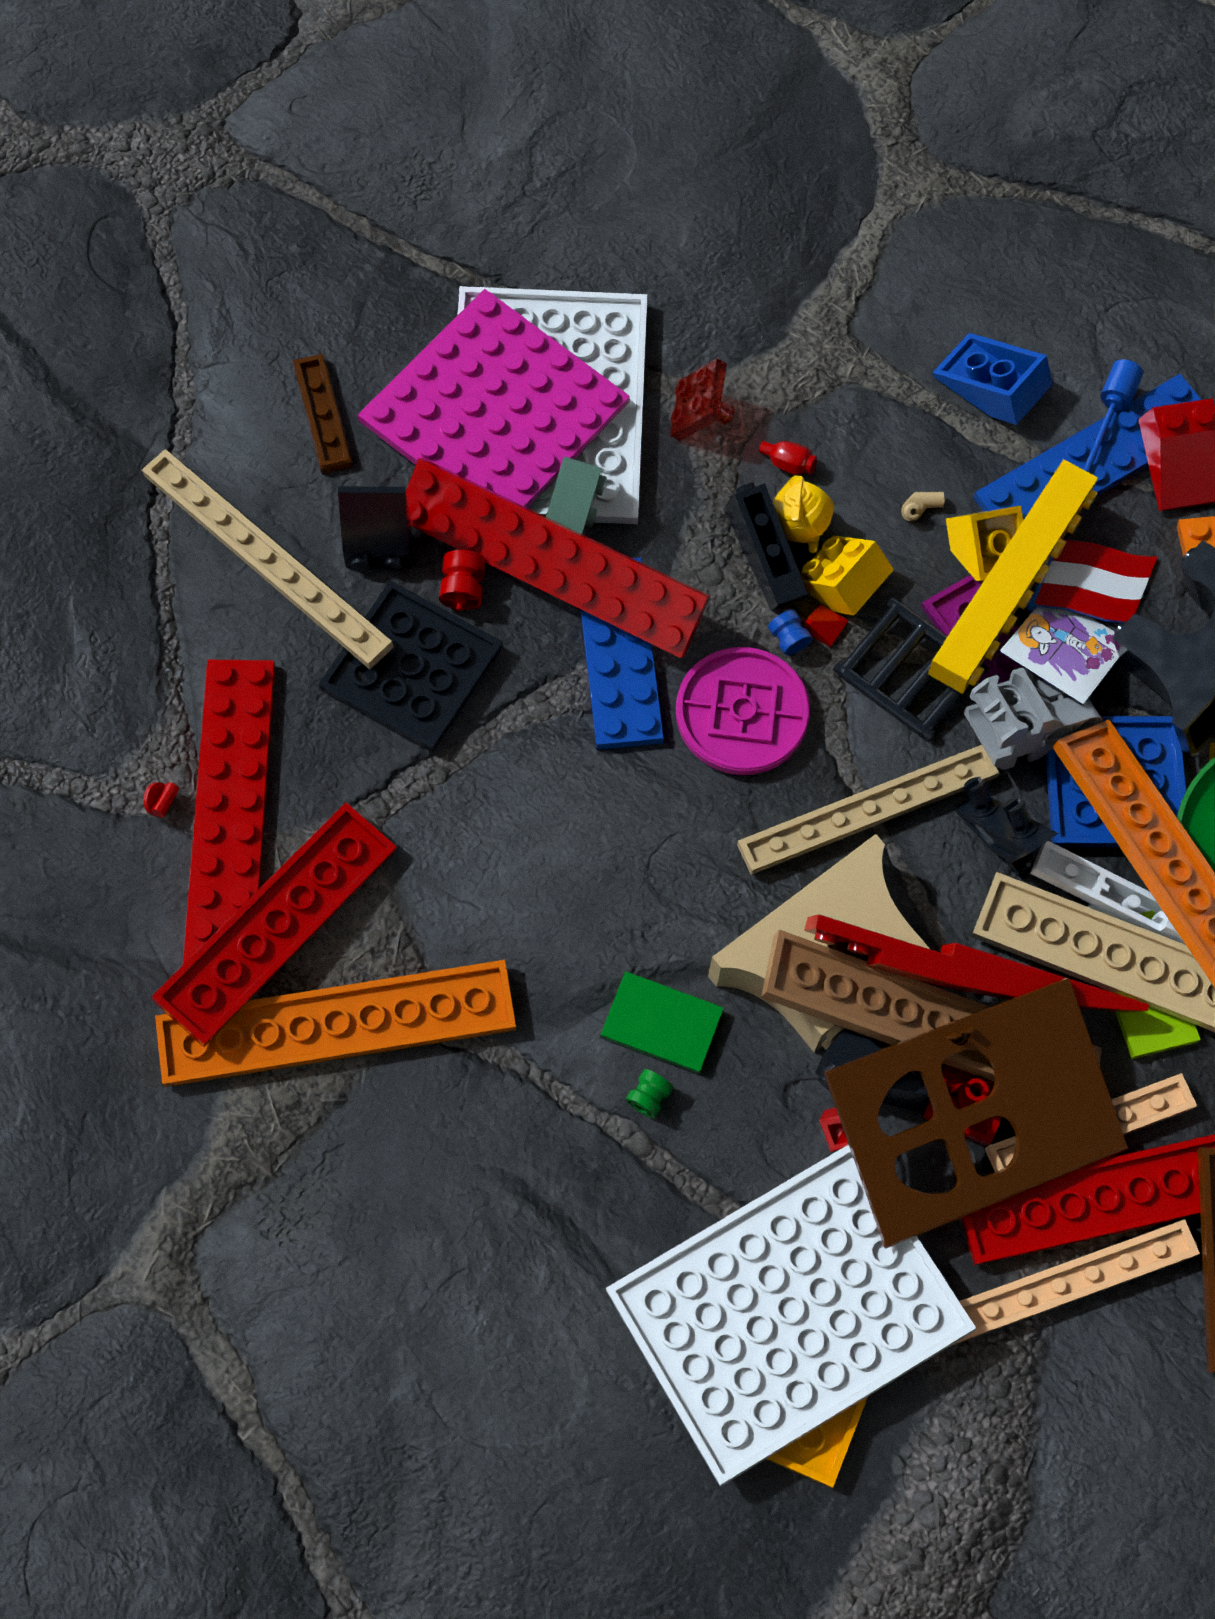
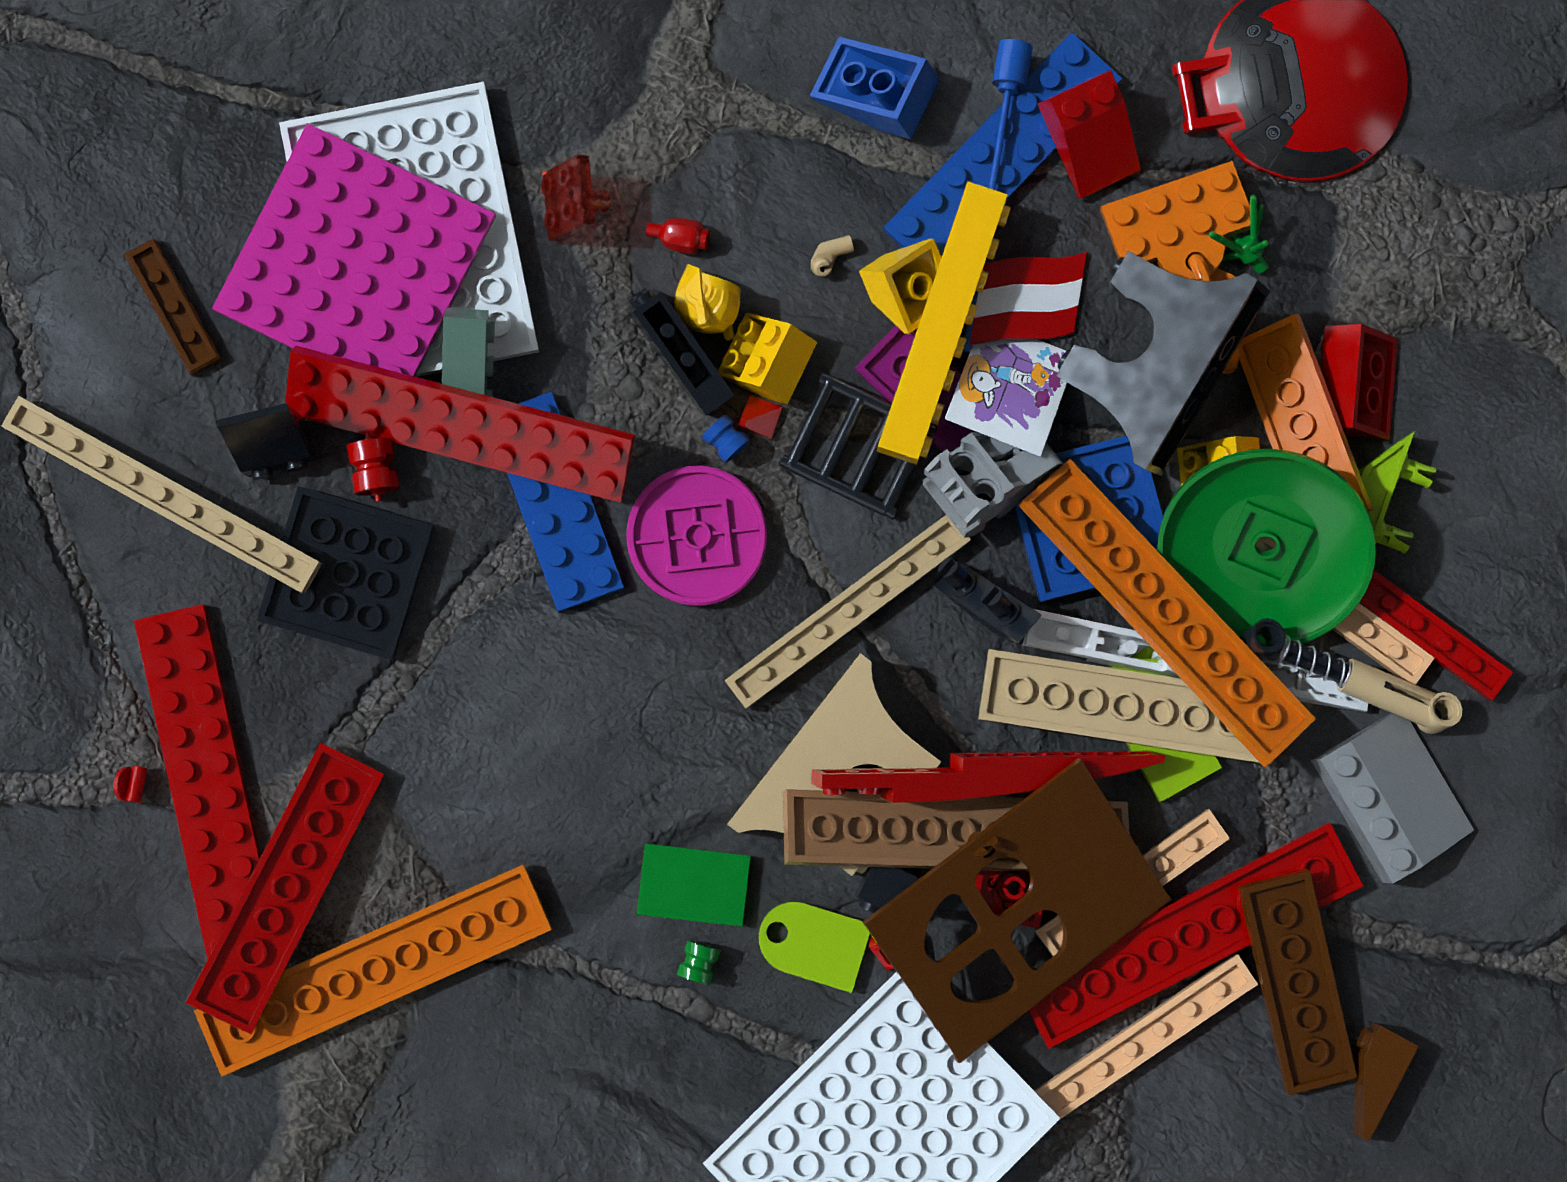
camera: 20 degrees left, 15 degrees up
(768, 1109) = (817, 946): none -> lime tile

